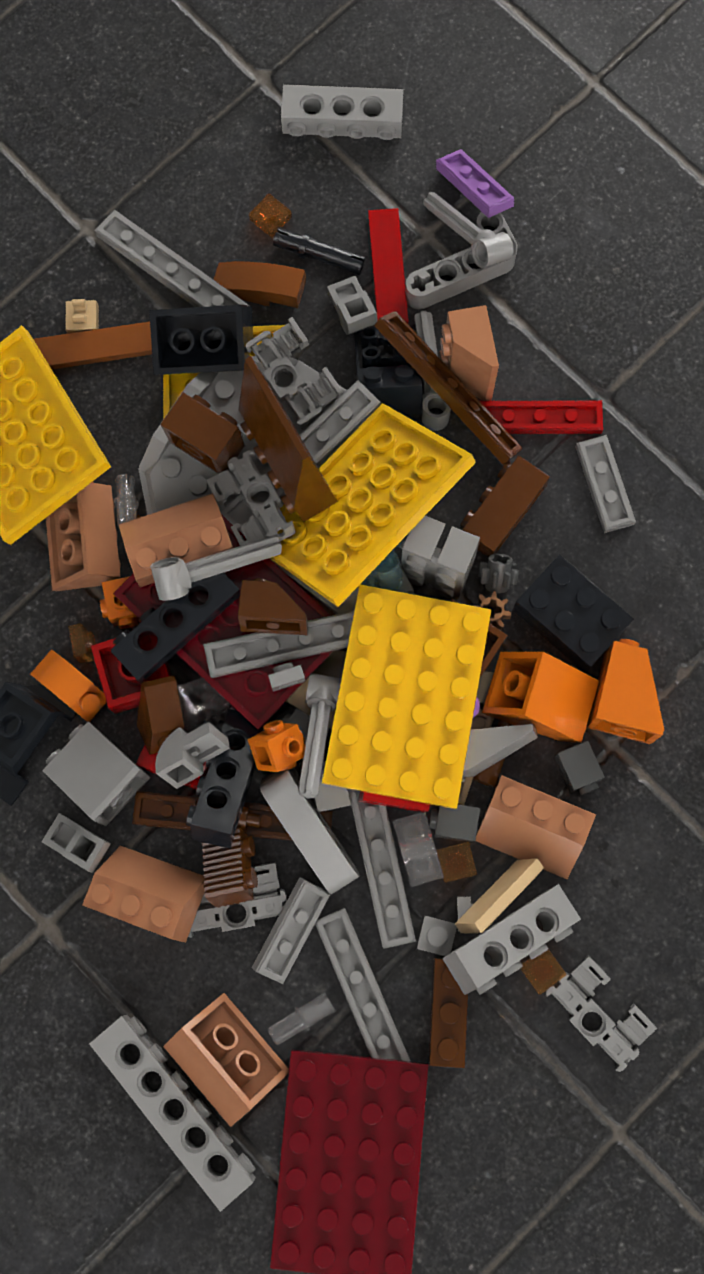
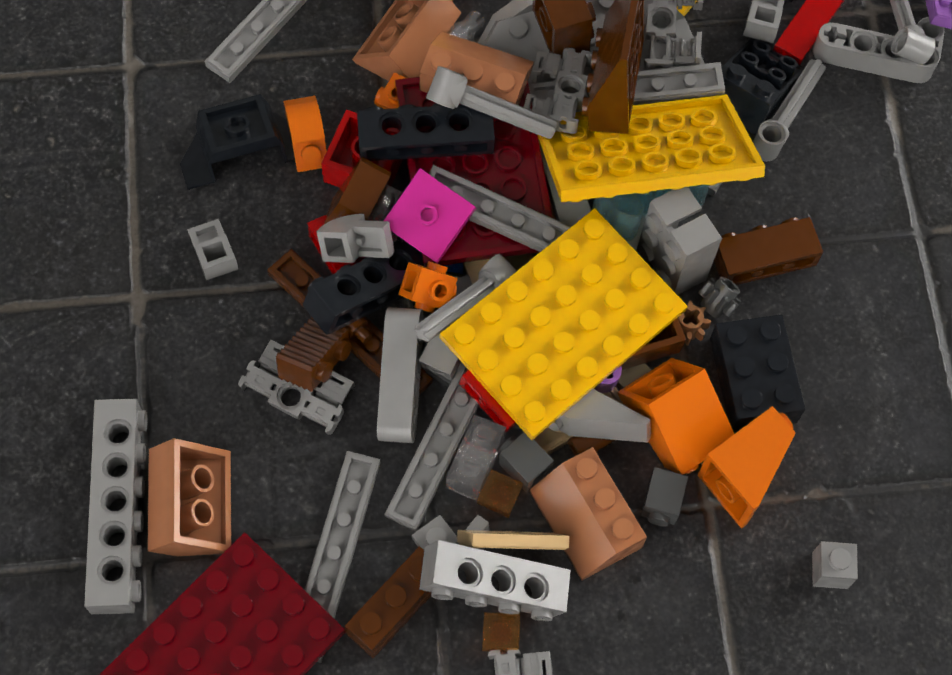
camera: 30 degrees right, 10 degrees down
(81, 643) = (341, 103): clear orange plate -> none
(95, 773) = (271, 211): light grey slope -> none
(147, 893) = (232, 325): nougat slope -> none
(234, 690) = (429, 215): none -> dark pink plate
(269, 609) = (505, 173): reddish brown slope -> none
(286, 676) = (478, 236): light grey plate -> none
(291, 930) = (322, 441): light grey tile -> none
(301, 1019) = (274, 516): clear axle -> none
(448, 387) = (793, 126): reddish brown tile -> none
(470, 350) = (830, 105): nougat slope -> none
(548, 416) = (853, 208): red tile -> none
(605, 484) = (868, 297): light grey tile -> none

